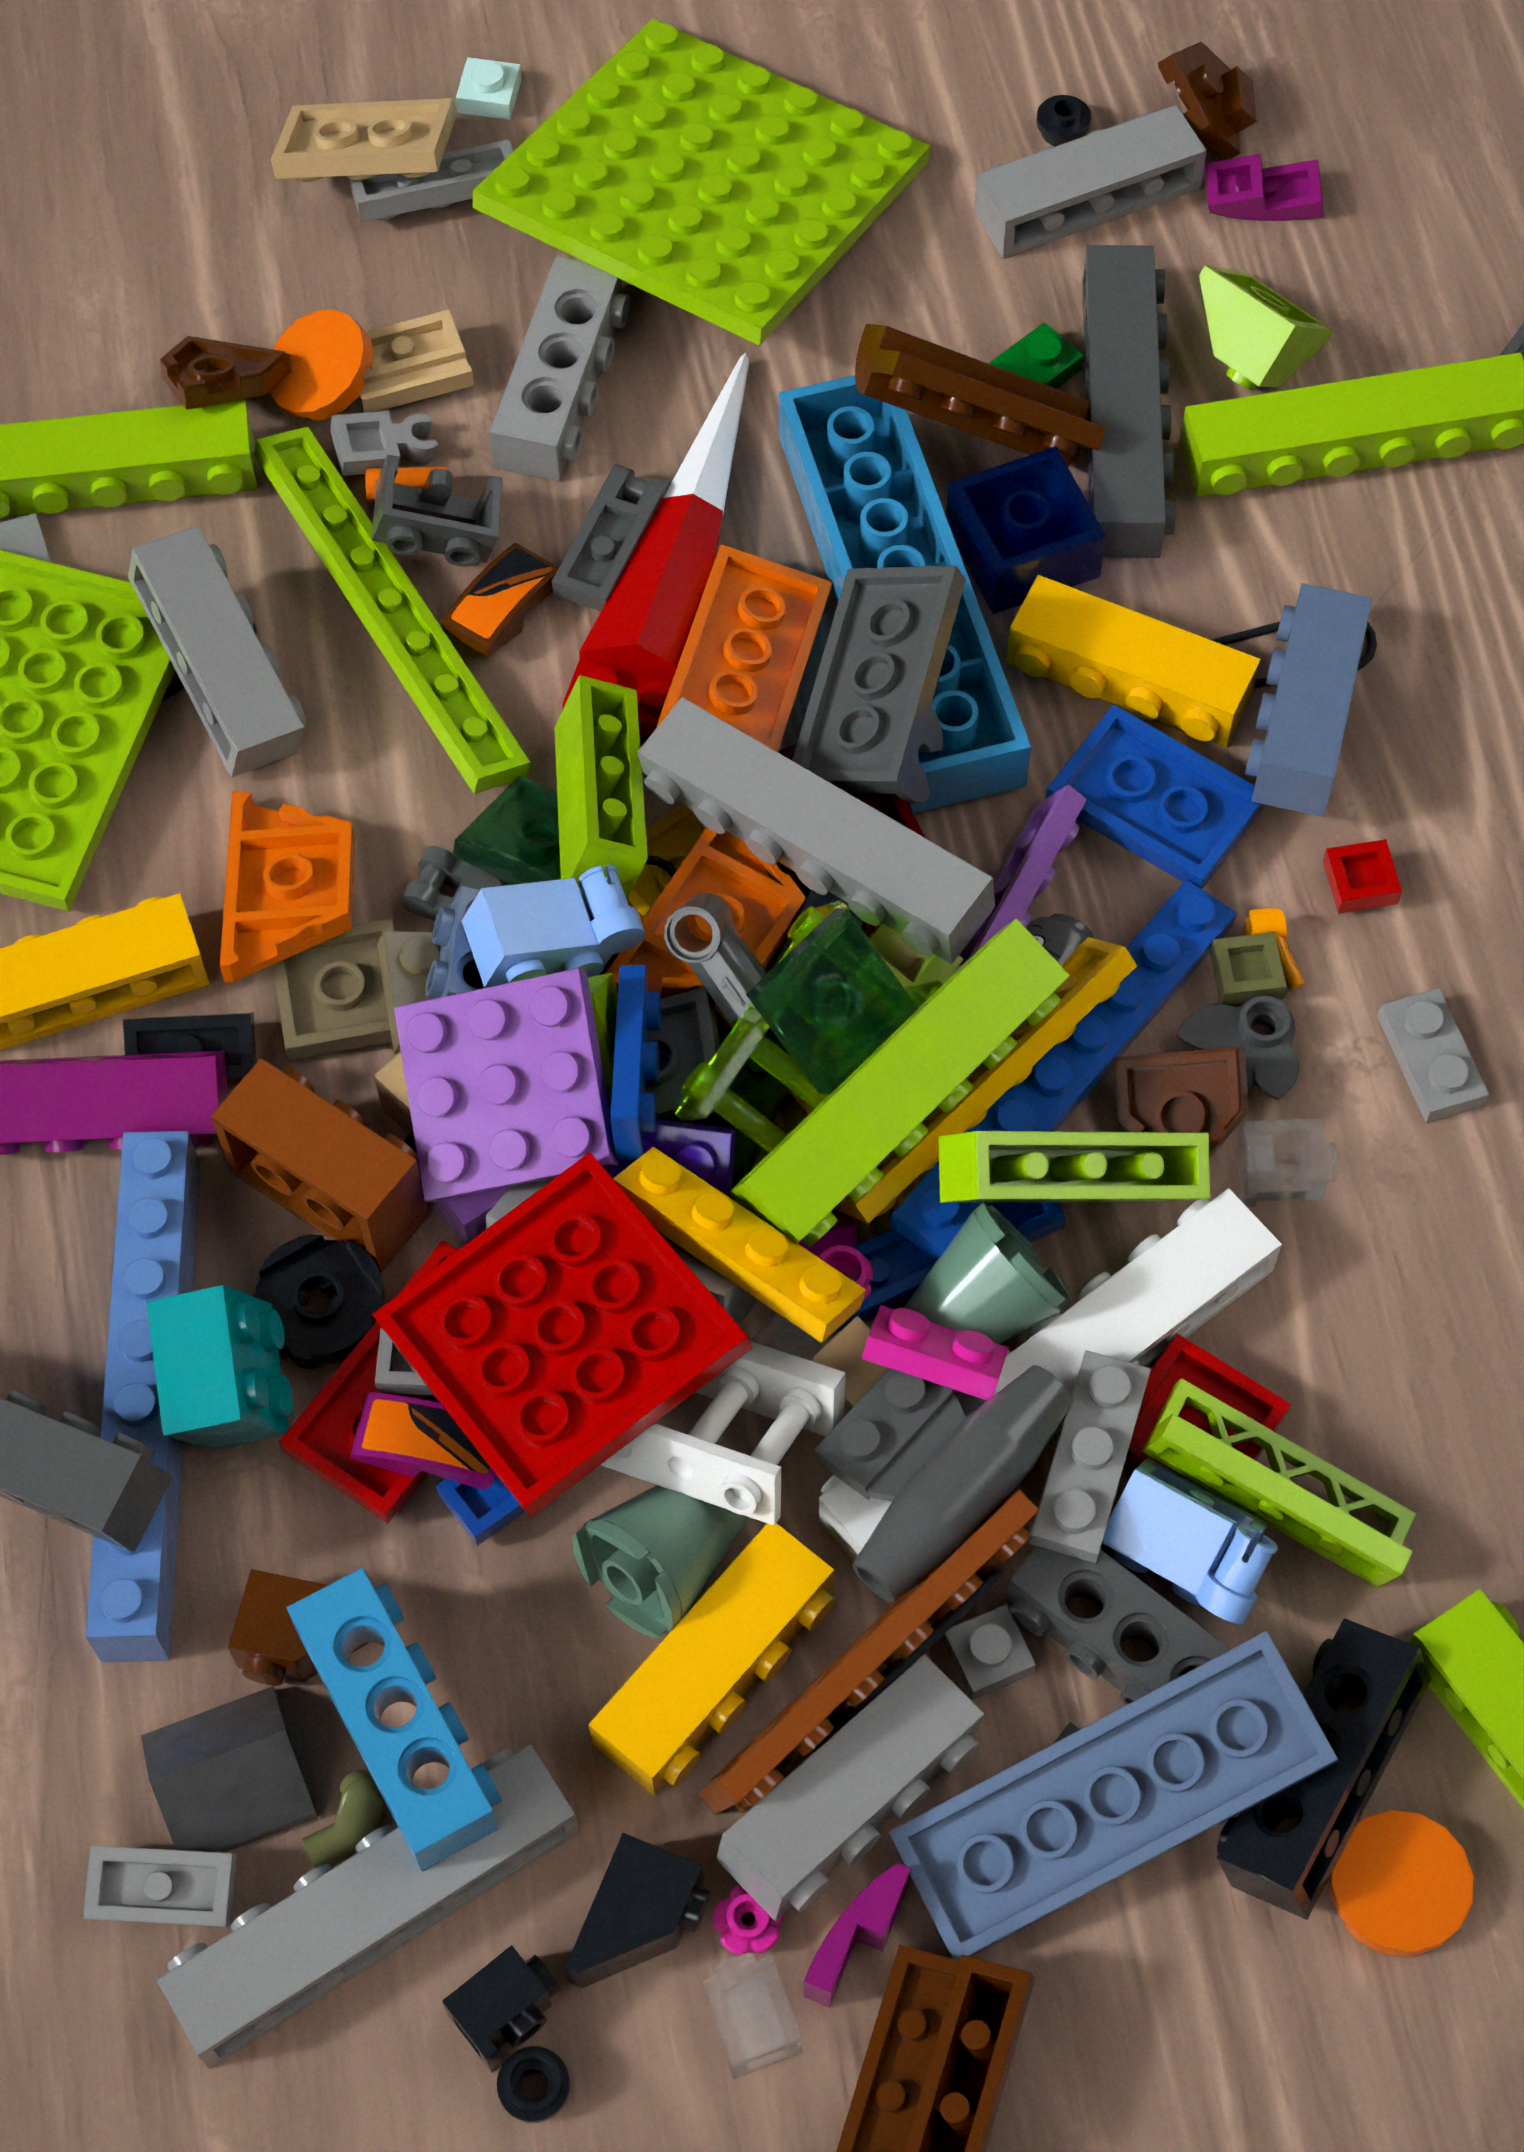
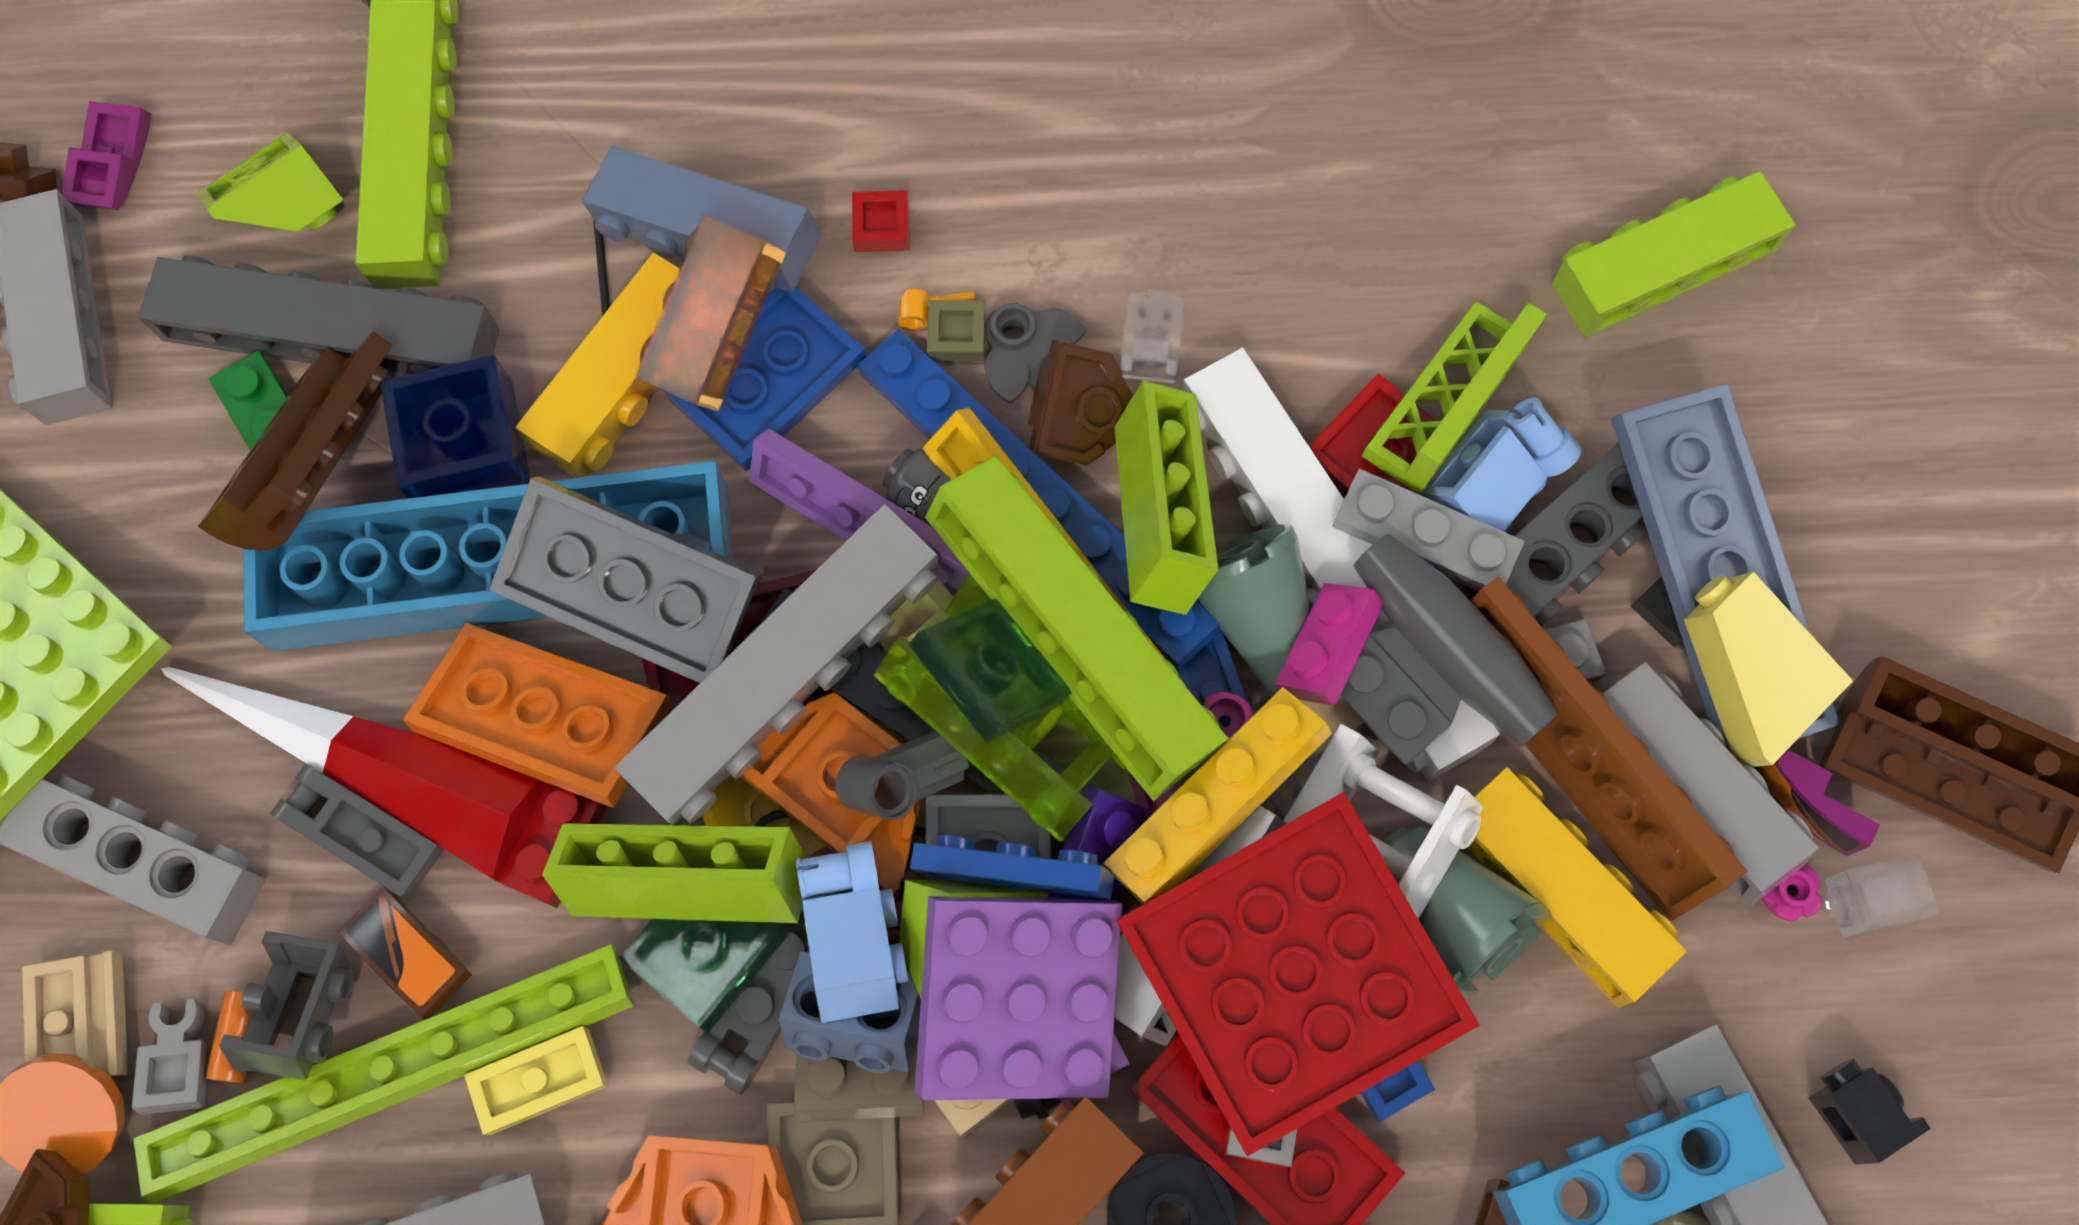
camera: 80 degrees left, 10 degrees up
(394, 727) = (535, 1080): none -> light yellow plate
(416, 1437) = (1344, 1142): slope -> none
(527, 2062) = (1943, 1089): black plate -> none
(637, 1911) = (1789, 984): black slope -> none
(993, 1827) = (1760, 667): none -> light yellow slope
(1190, 710) = (709, 313): none -> clear orange brick
(1296, 1864) = (1630, 342): black brick -> none
(1402, 1884) = (1780, 375): orange tile -> none
(1432, 1055) = (1059, 204): light grey plate -> none

